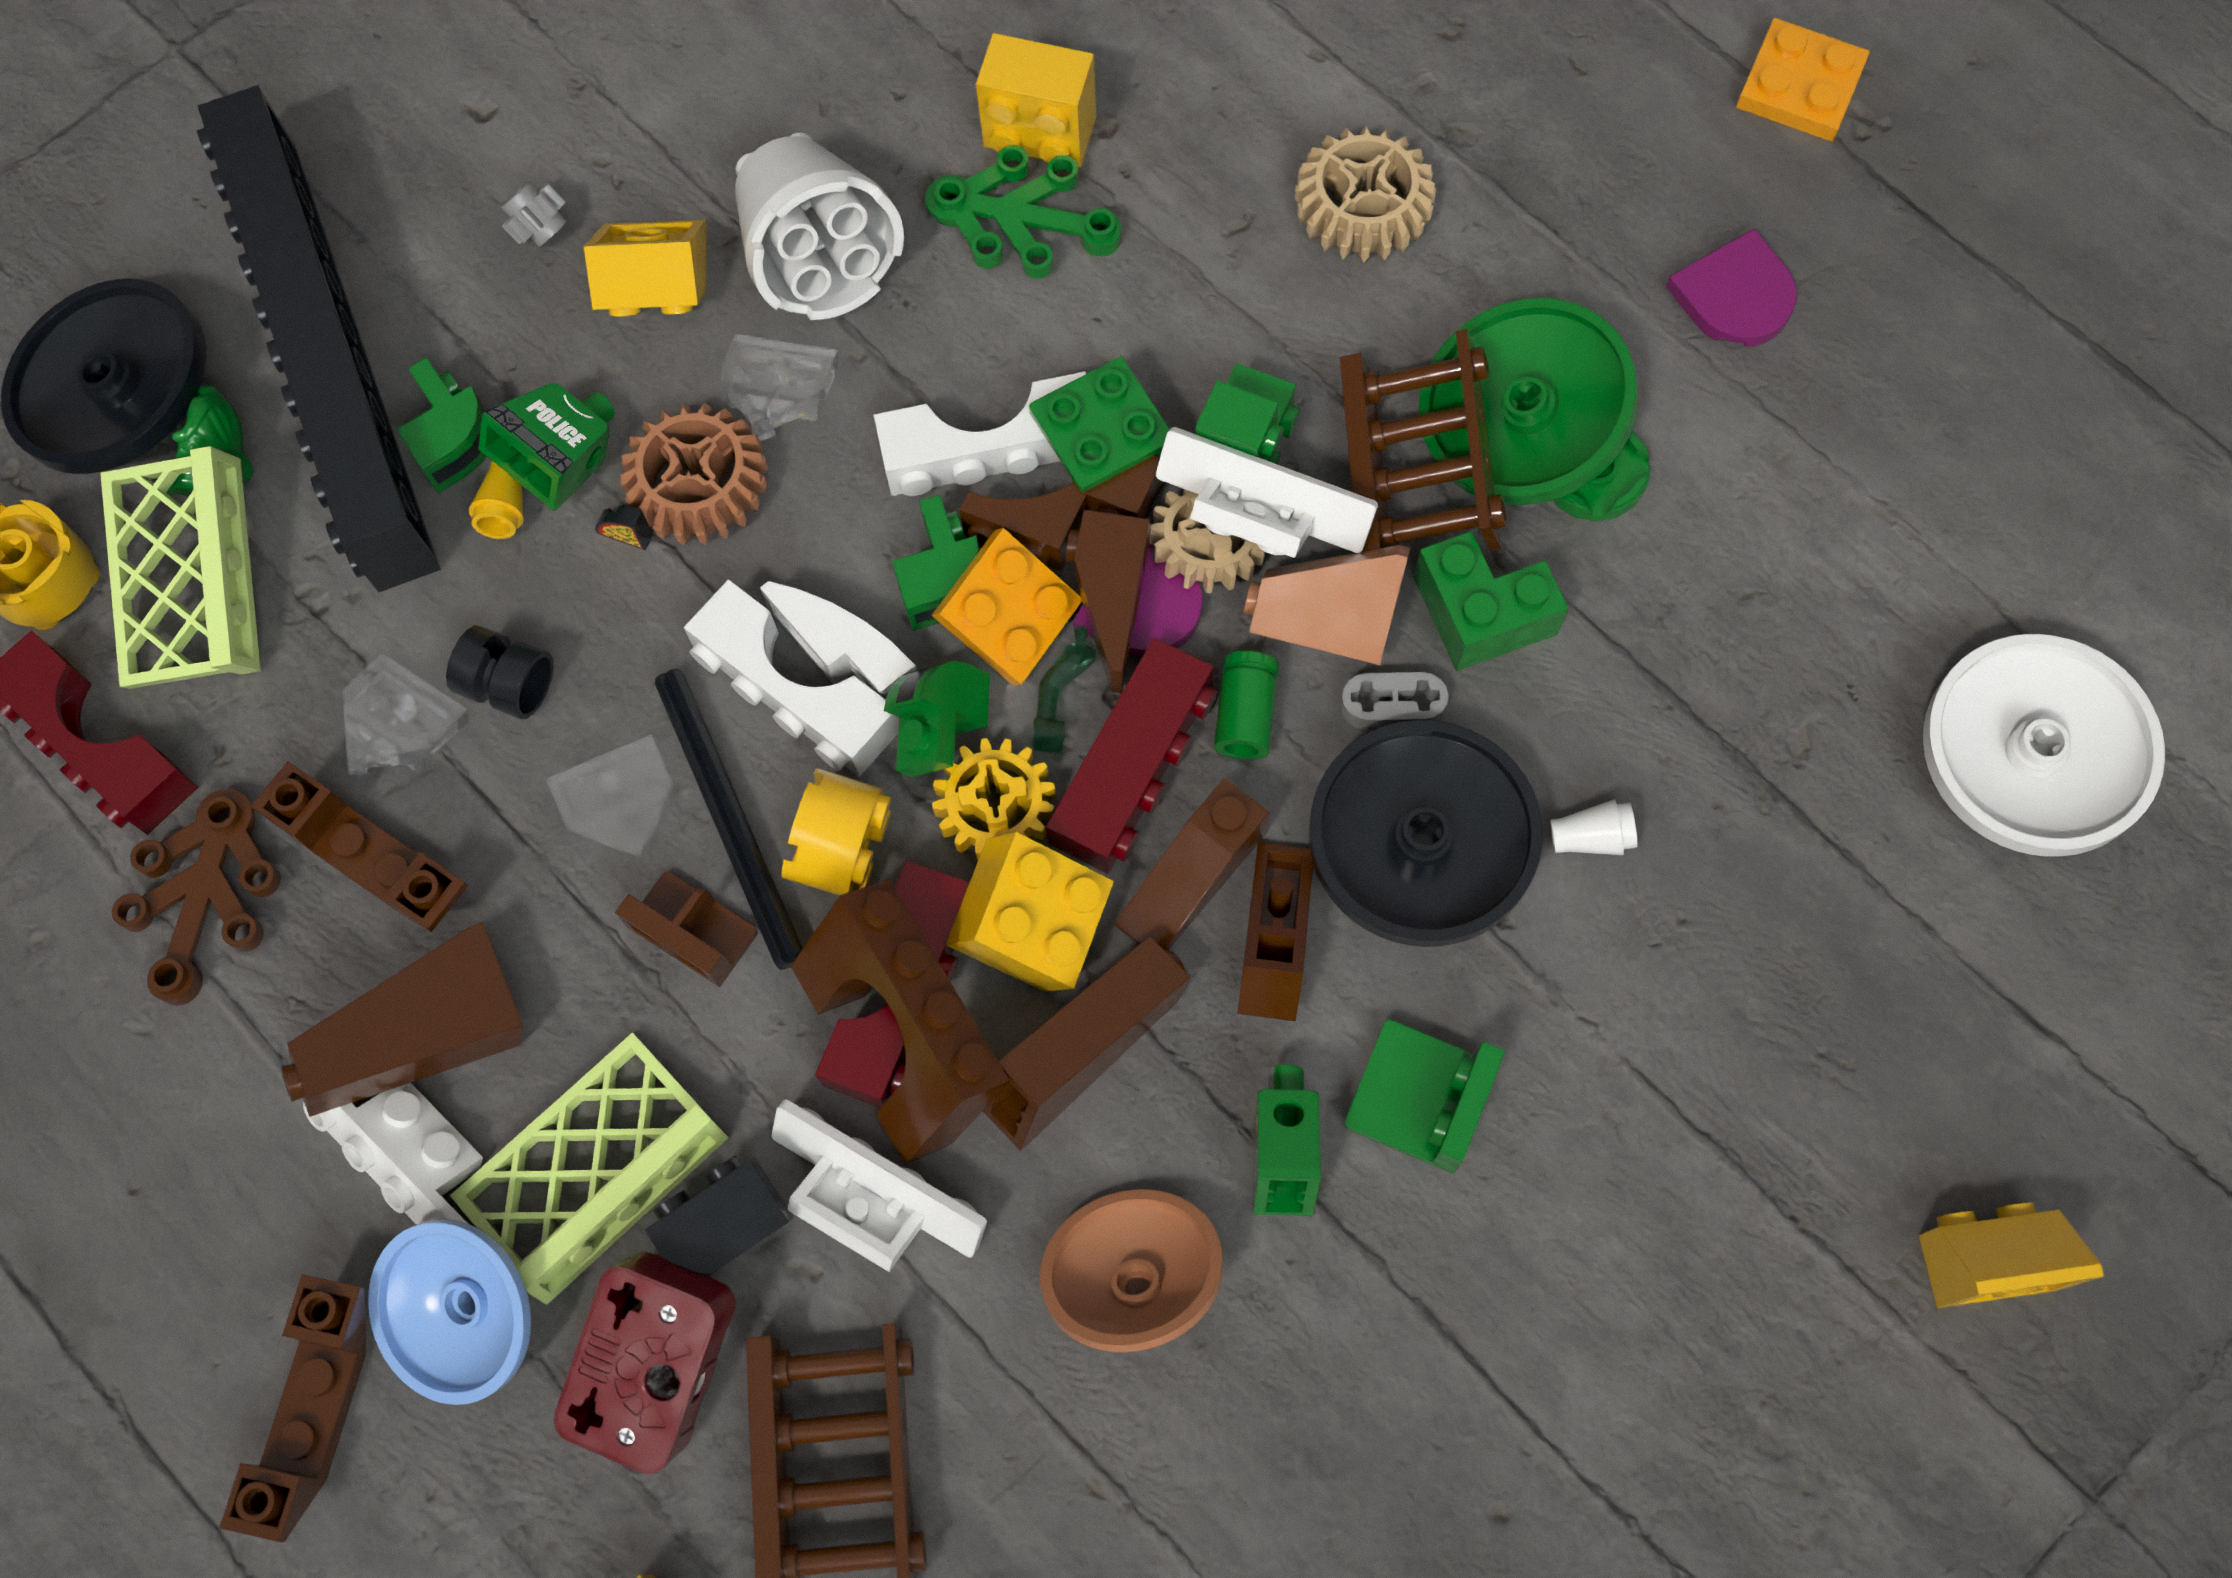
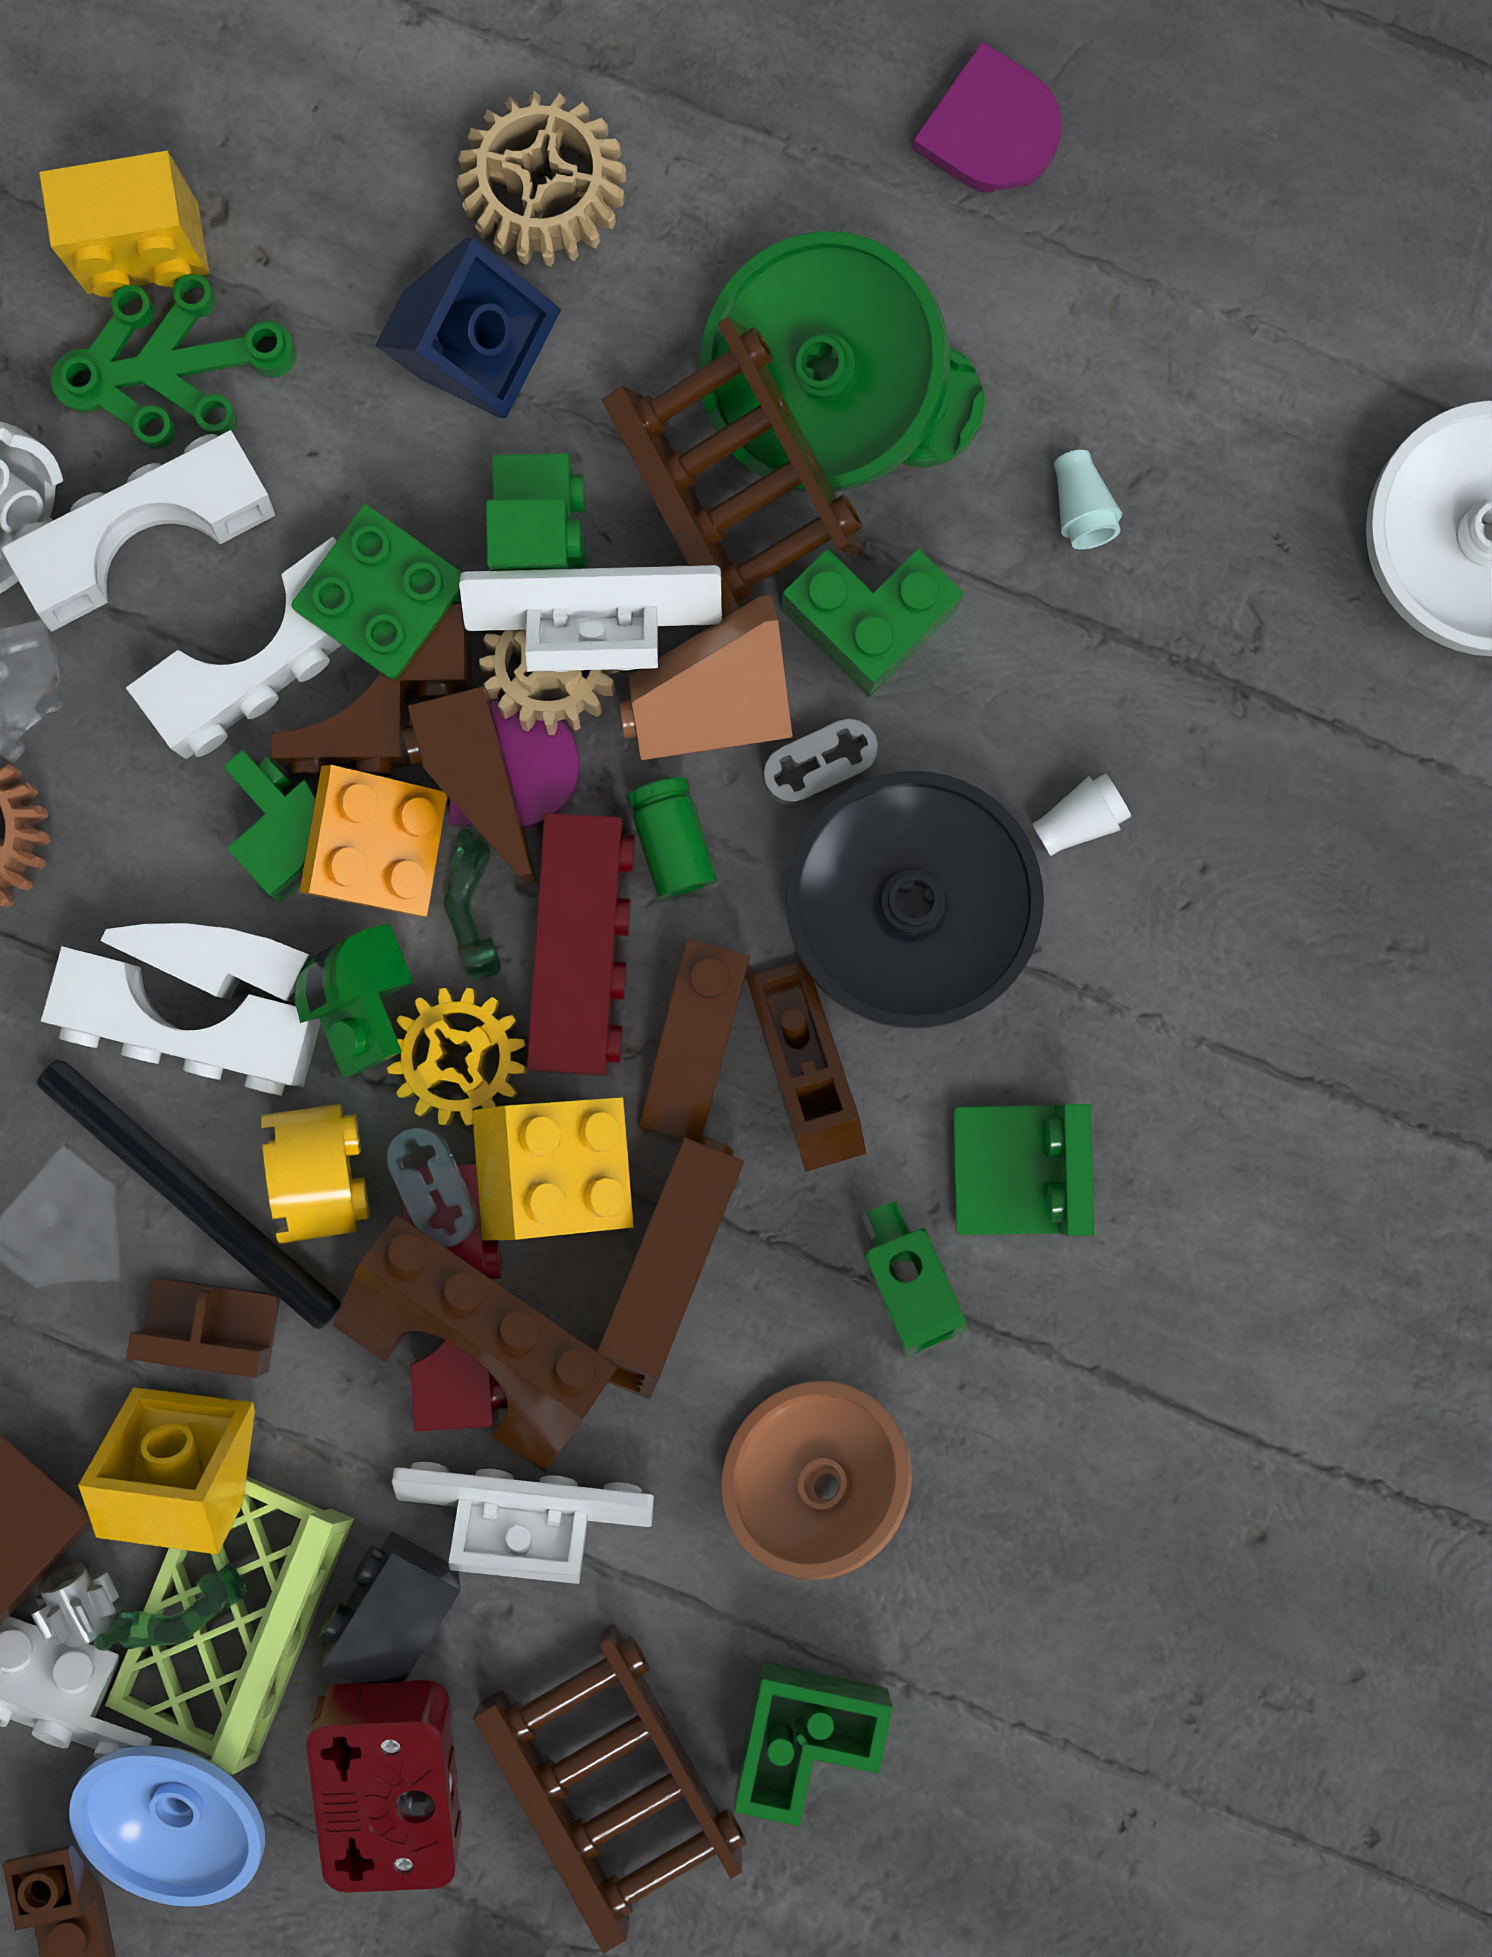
camera: 30 degrees left, 15 degrees up
(470, 1096) = (75, 1604): none -> light grey gear
(515, 1144) = (147, 1629): none -> clear green piece
(602, 1022) = (170, 1471): none -> yellow slope
(939, 880) = (417, 1194): none -> clear light blue beam
(1000, 304) = (68, 560): none -> white arch
(1016, 1474) = (800, 1720): none -> green brick
(1261, 273) = (470, 328): none -> dark blue slope
(1698, 593) = (1085, 503): none -> light aqua cone

